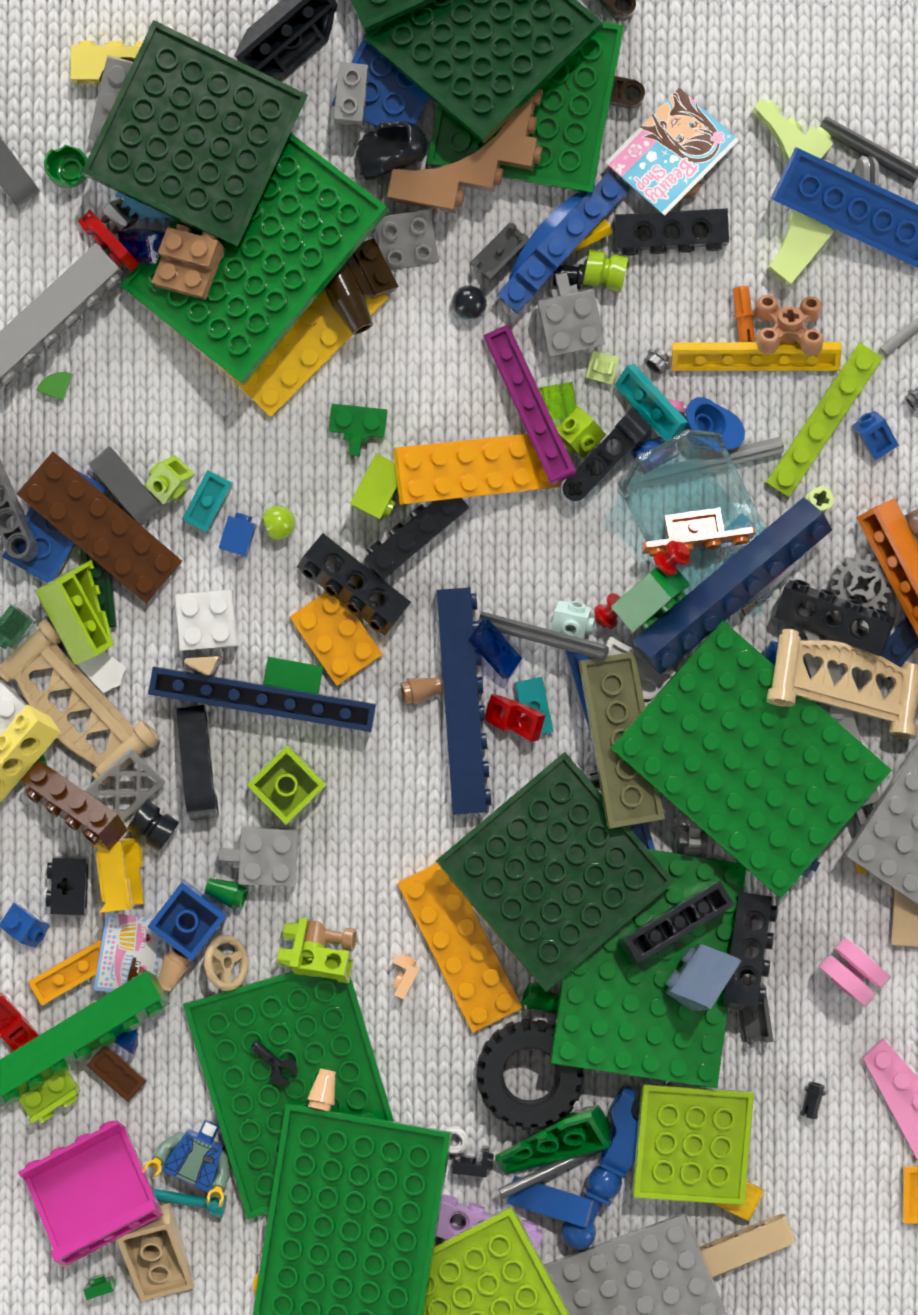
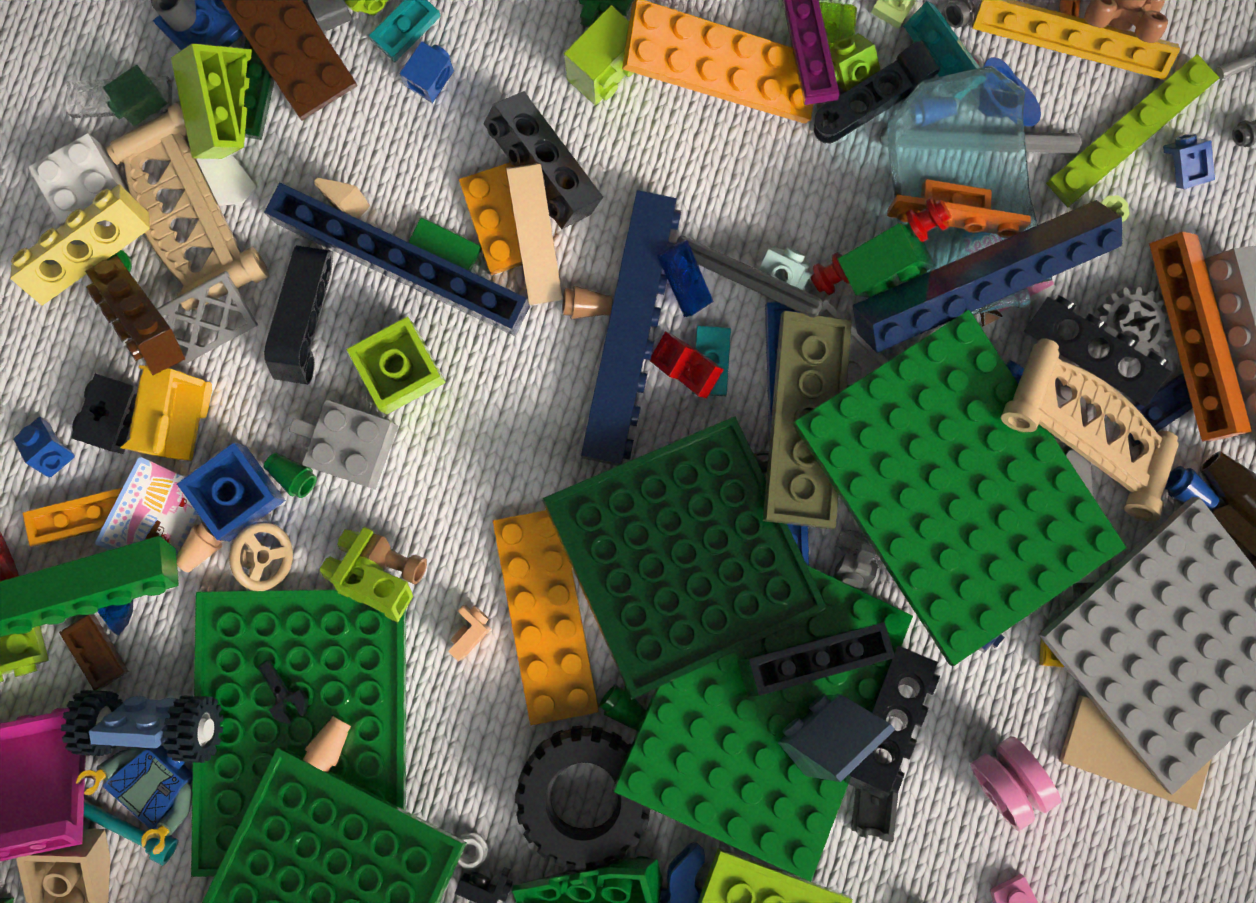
camera: 15 degrees right, 5 degrees down
(152, 825) = (229, 374): black wheel -> none
(179, 1114) = (103, 721): none -> plate
(206, 620) = (363, 153): white brick -> none
(279, 522) = (478, 69): lime piece -> none
(365, 648) = (534, 233): none -> tan tile
(414, 535) = (631, 123): black brick -> none

